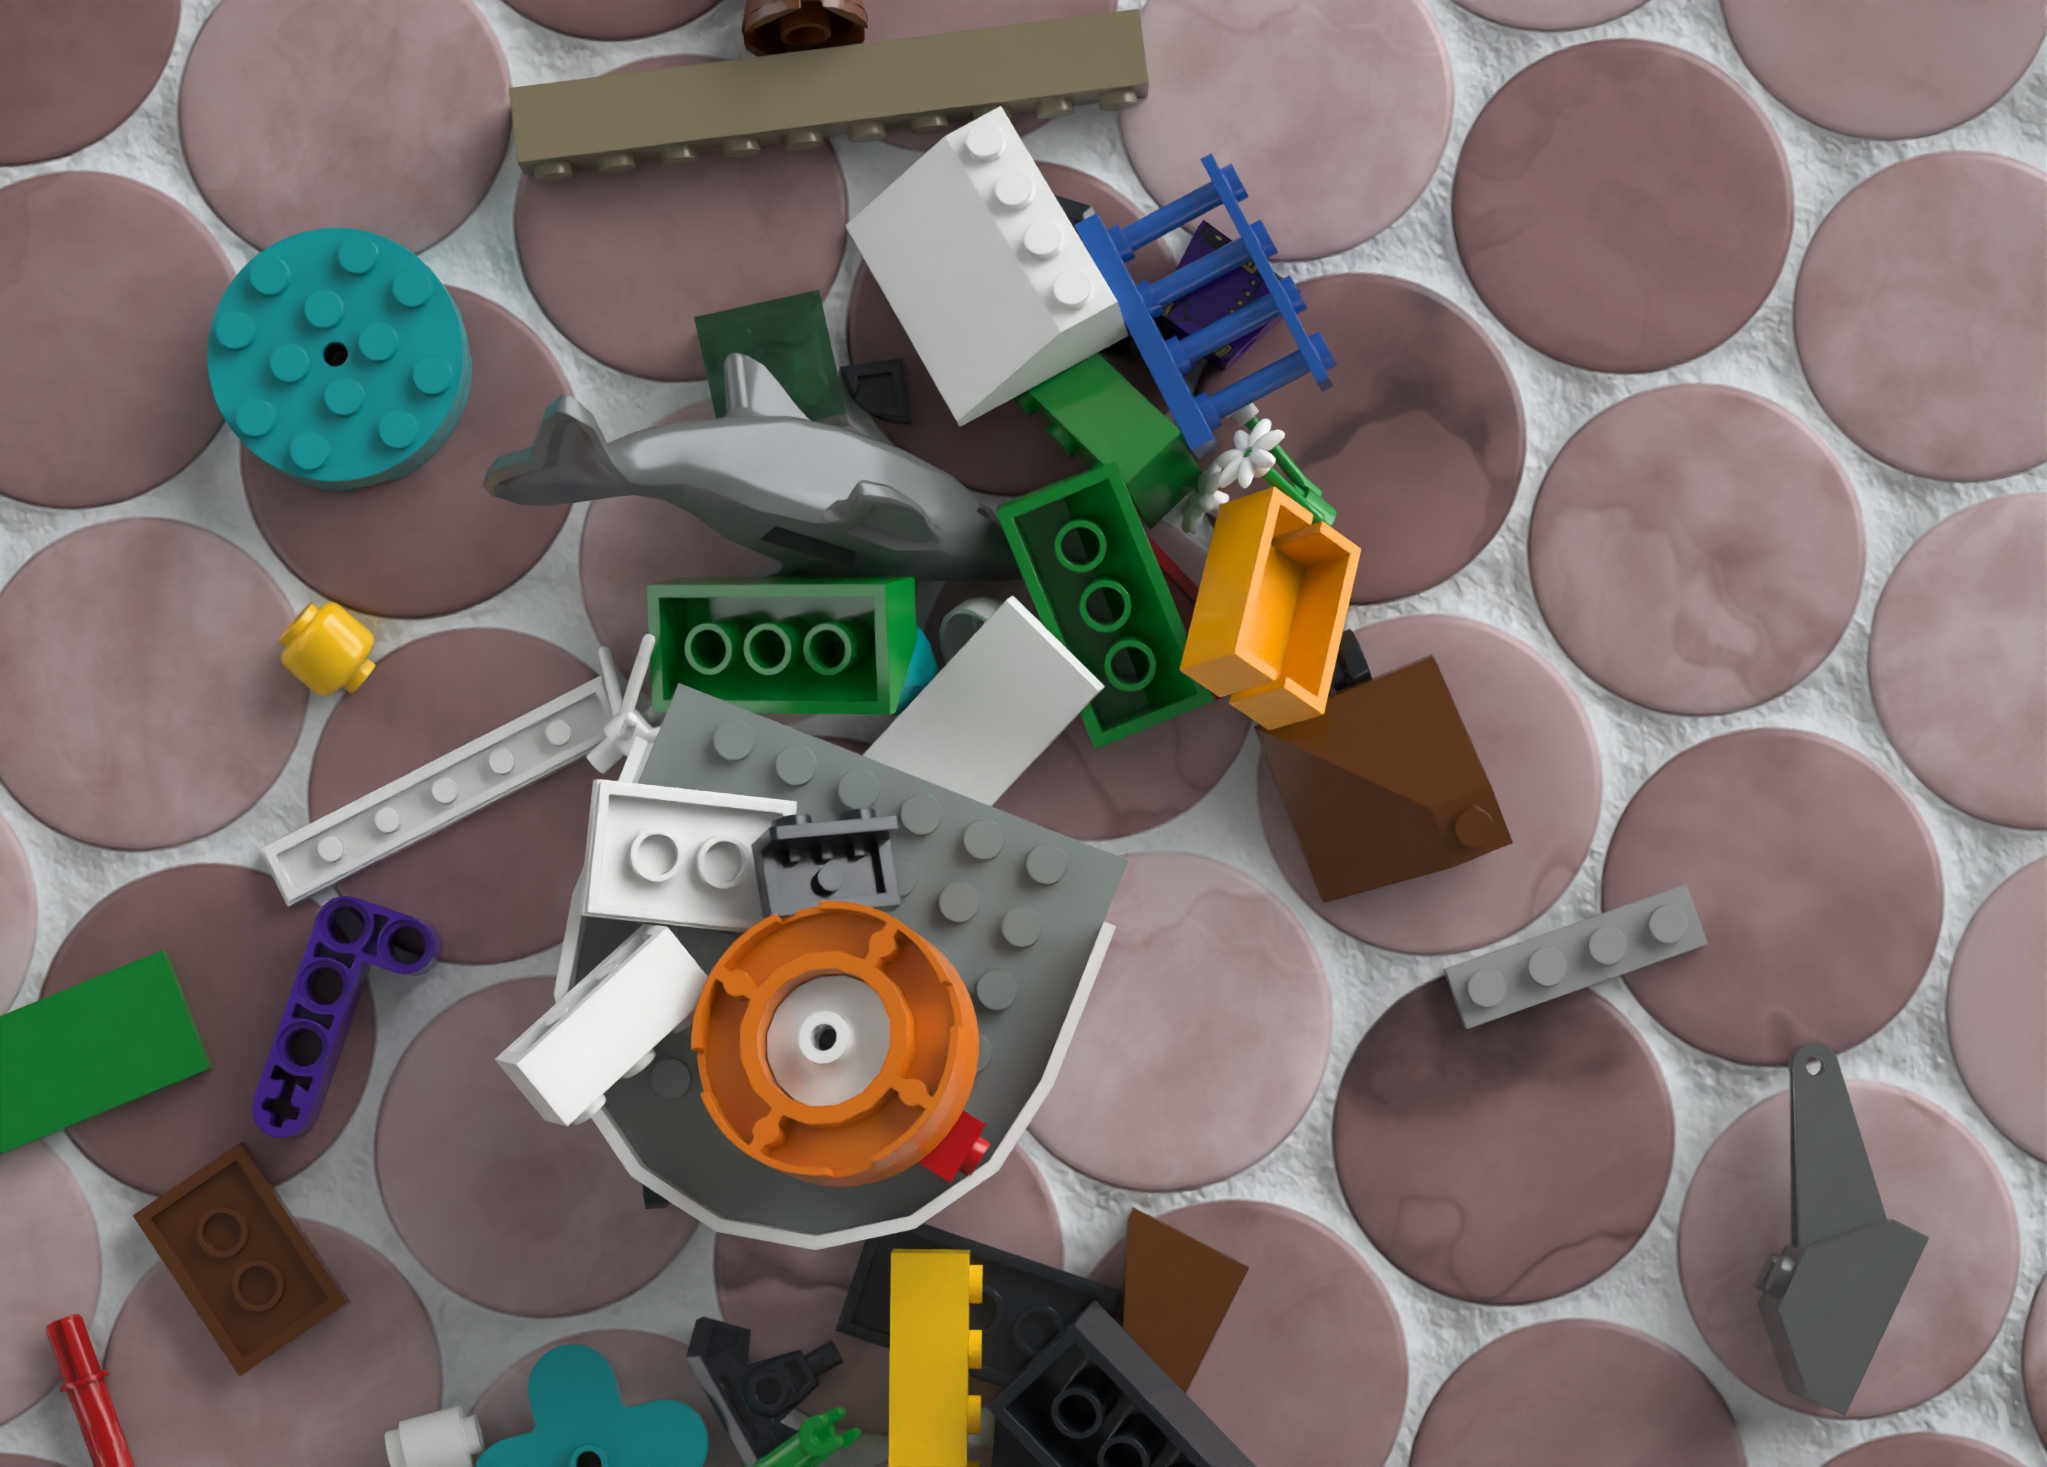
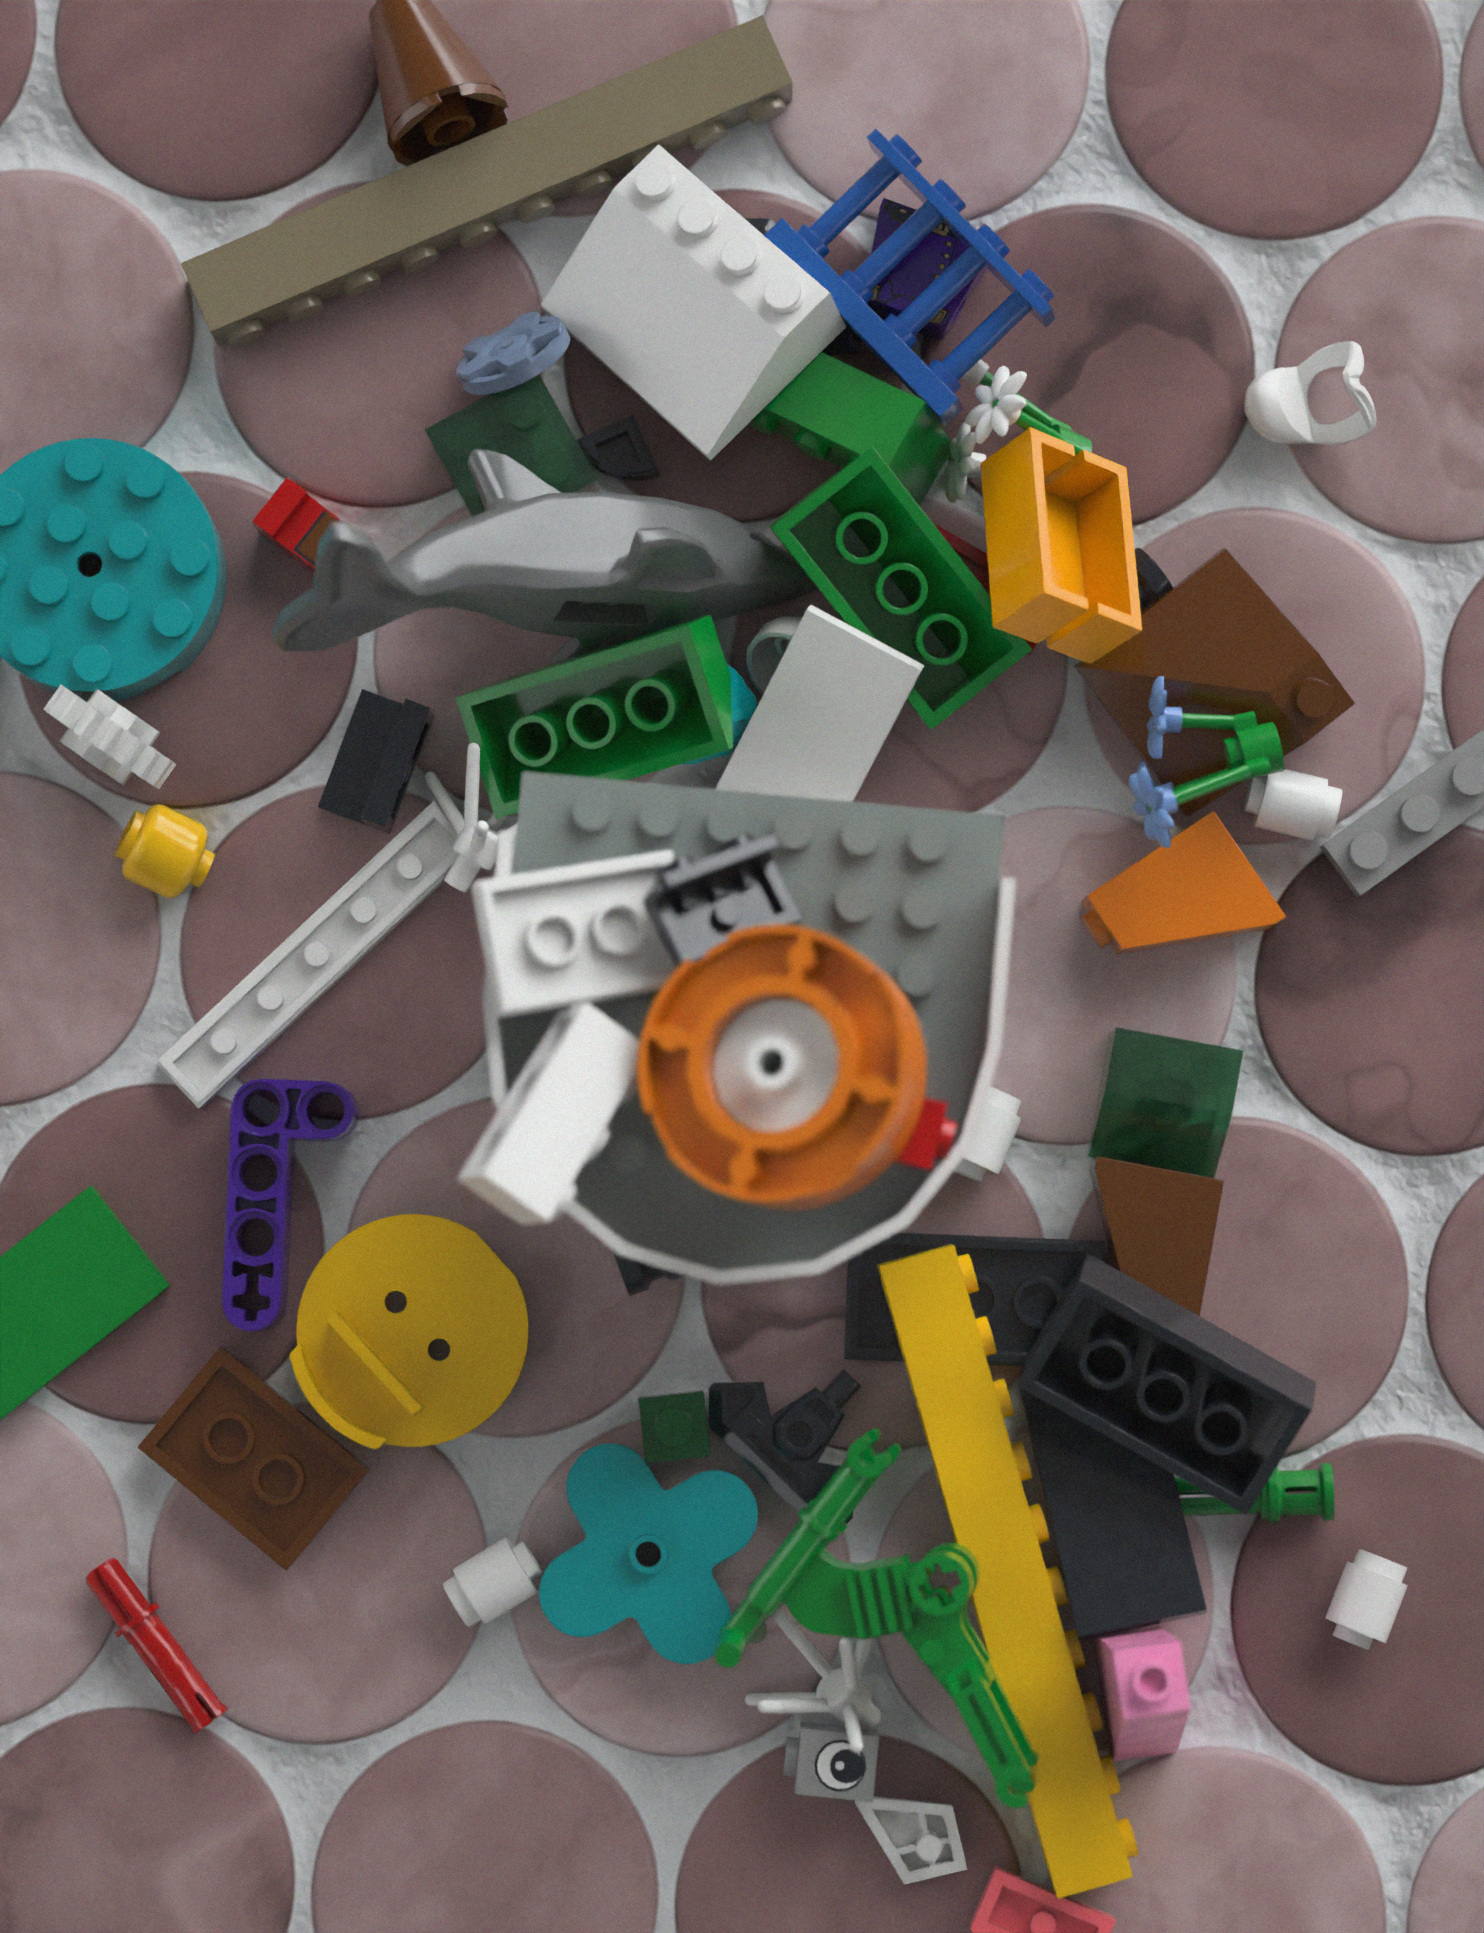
camera: 20 degrees left, 0 degrees up
(305, 525) = (109, 737): none -> white gear
(379, 1204) = (373, 1367): none -> yellow piece
(551, 370) = (294, 522): none -> red leg
(557, 620) = (376, 760): none -> black panel
(651, 1347) = (674, 1426): none -> dark green brick
(801, 267) = (512, 354): none -> sand blue wheel
(1036, 1154) = (993, 1136): none -> white brick
(1216, 1175) = (1164, 1102): none -> clear green slope
(1292, 976) = (1182, 894): none -> orange slope
(1394, 863) = (1248, 755): none -> plant
(1427, 921) = (1293, 804): none -> white brick
(1531, 528) = (1279, 402): none -> white piece

